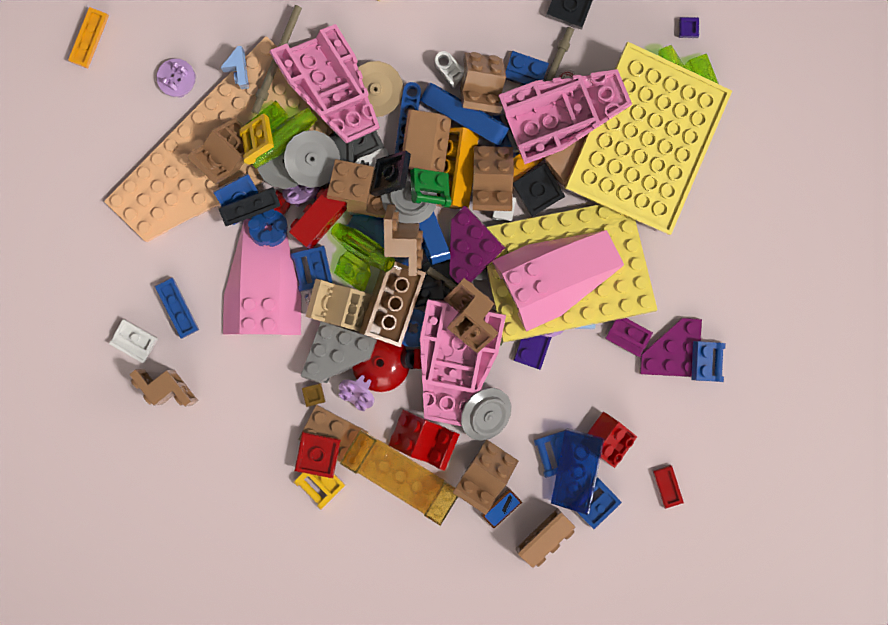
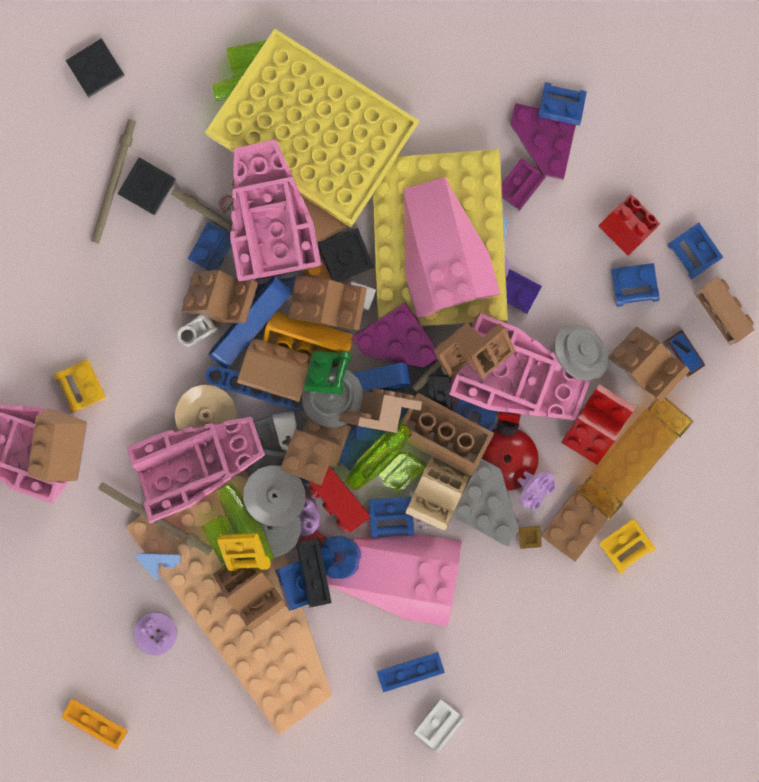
camera: 75 degrees left, 0 degrees up
(163, 388) = (497, 699): medium nougat bracket -> none
(317, 455) = (596, 542): red tile -> none
(390, 173) = (305, 412): black plate -> none
(577, 471) = (658, 264): clear blue tile -> none
(668, 486) = (689, 170): red tile -> none
(689, 27) = (194, 62): dark purple tile -> none

